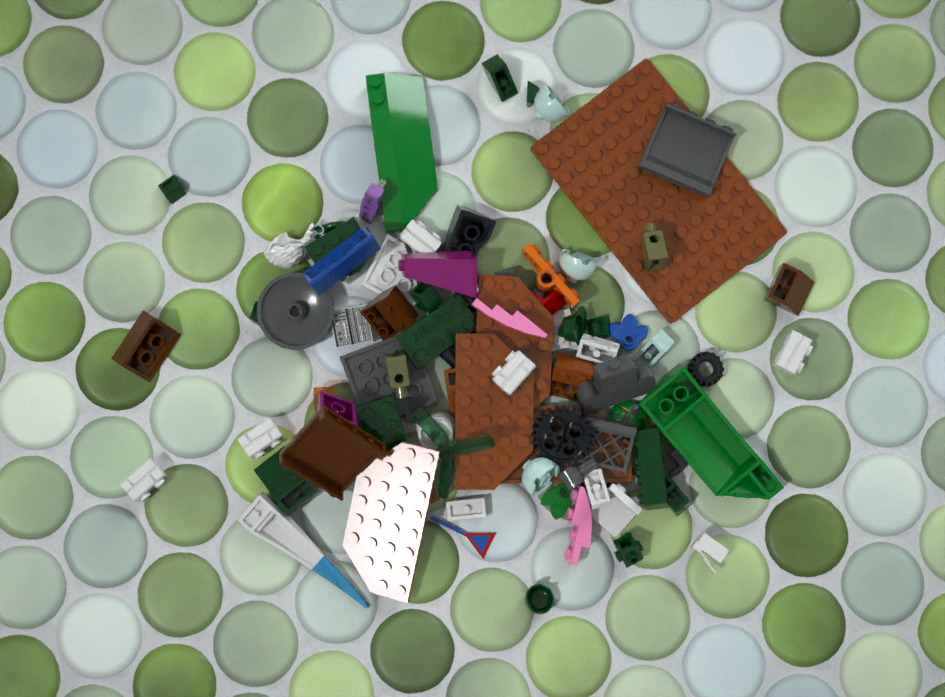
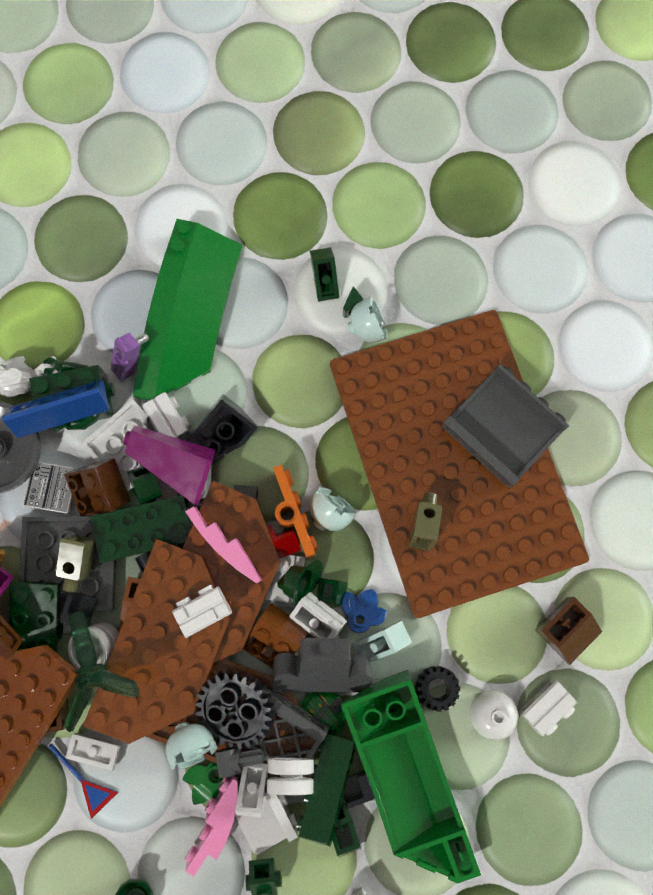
camera: 25 degrees right, 5 degrees down
(622, 466) = (291, 776): none -> white wheel
(754, 373) = (493, 715): none -> white cylinder

